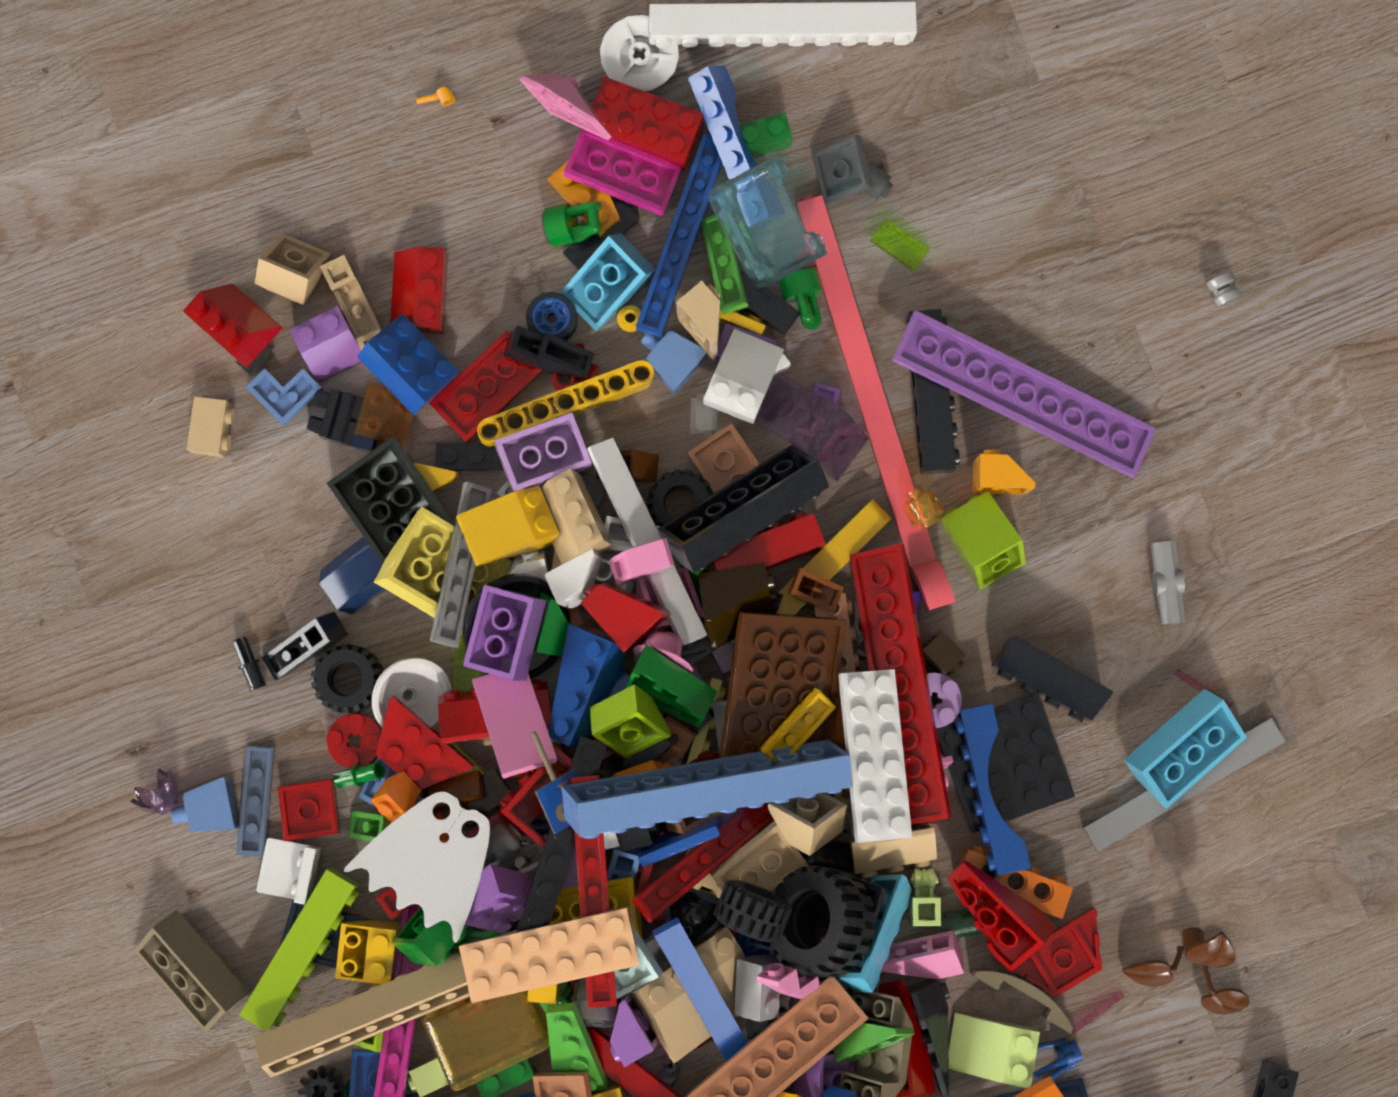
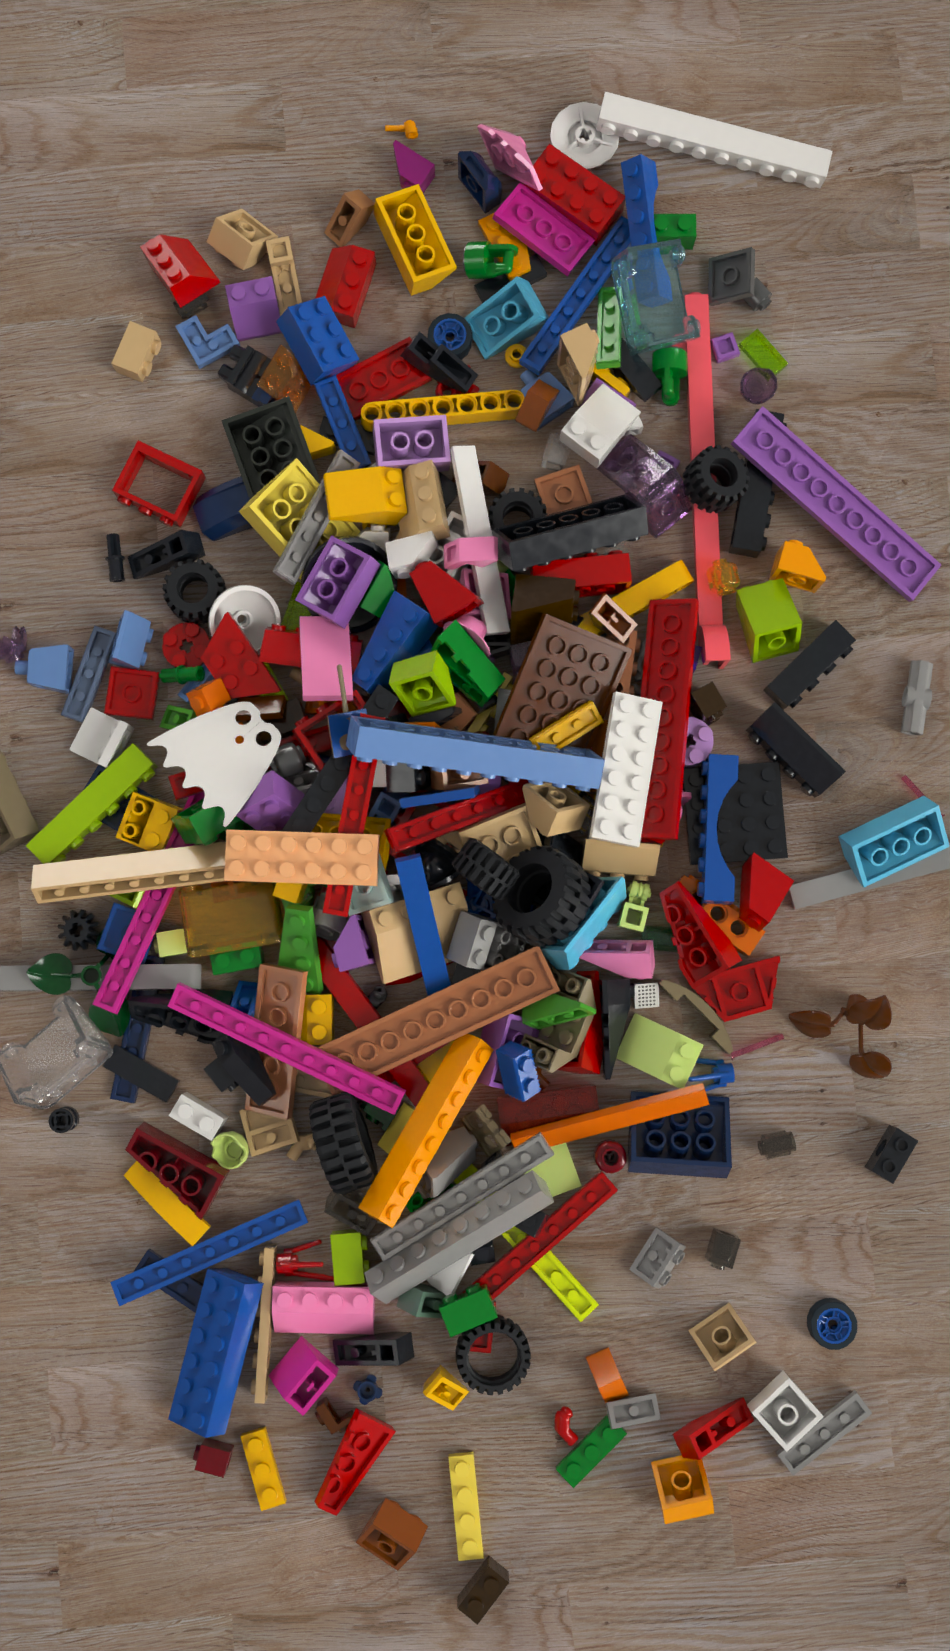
camera: 15 degrees right, 0 degrees up
(239, 563) = (138, 455): none -> red window
(291, 754) = (130, 641): none -> medium blue slope
(404, 213) = (349, 217): none -> medium nougat slope
(458, 445) = (342, 420): none -> blue tile
(461, 142) = (412, 167): none -> magenta slope
(483, 220) = (414, 238): none -> yellow slope
(538, 135) = (479, 180): none -> dark blue slope
(668, 372) = (536, 405): none -> dark orange slope
(787, 981) = (498, 937): bright pink slope -> none
(855, 248) = (724, 347): none -> medium lavender tile
(873, 416) = (726, 468): none -> black tyre
(904, 283) = (758, 385): none -> hair
(962, 990) = (646, 995): none -> white slope
(1042, 578) = (809, 665): none -> black brick
(1057, 845) = (761, 891): none -> red slope

